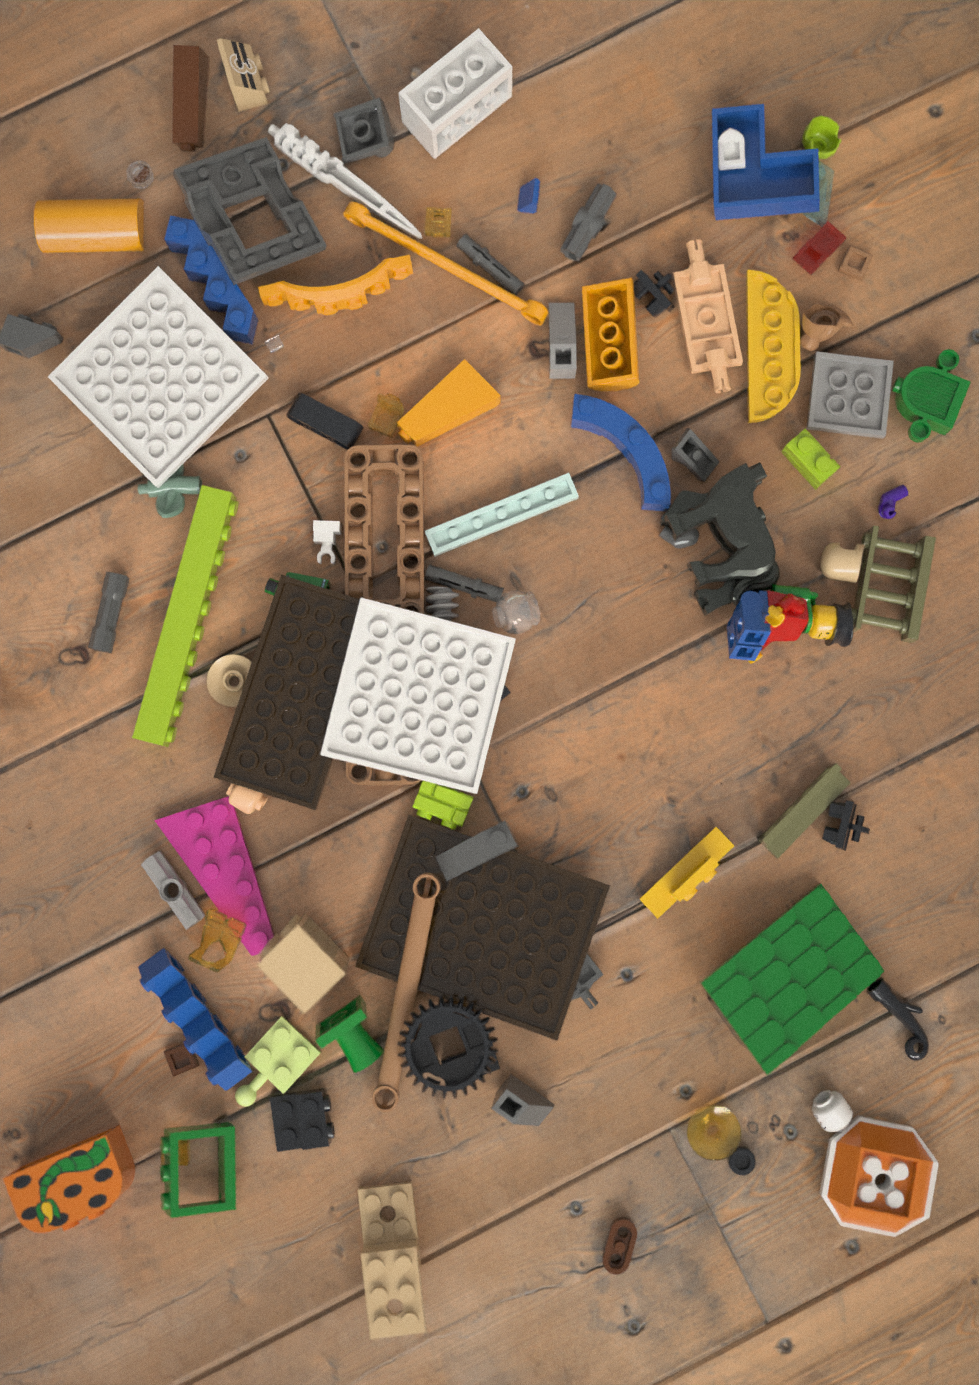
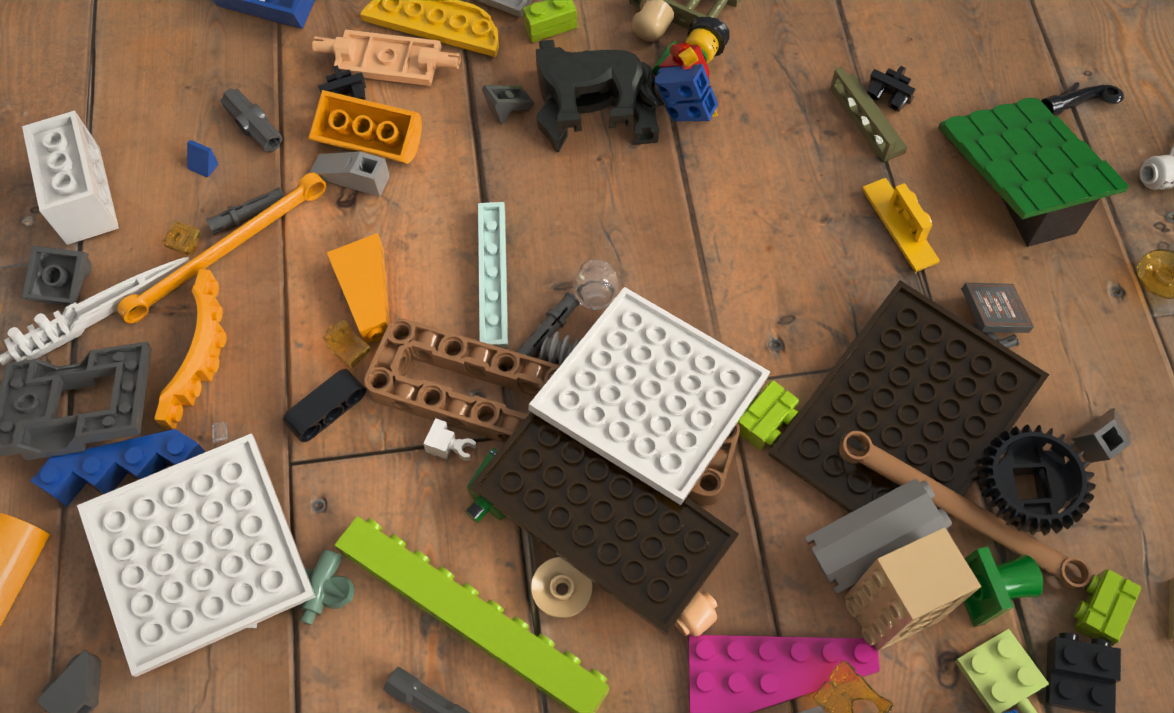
camera: 70 degrees left, 20 degrees down
(350, 924) = (878, 528): none -> light grey brick
(364, 1129) = (1106, 607): none -> lime brick
(477, 850) = (830, 387): dark grey slope -> none
(620, 981) = (997, 308): none -> dark grey tile
(632, 441) = (474, 144): blue brick -> none
(686, 540) = (578, 140): dark grey arm -> none

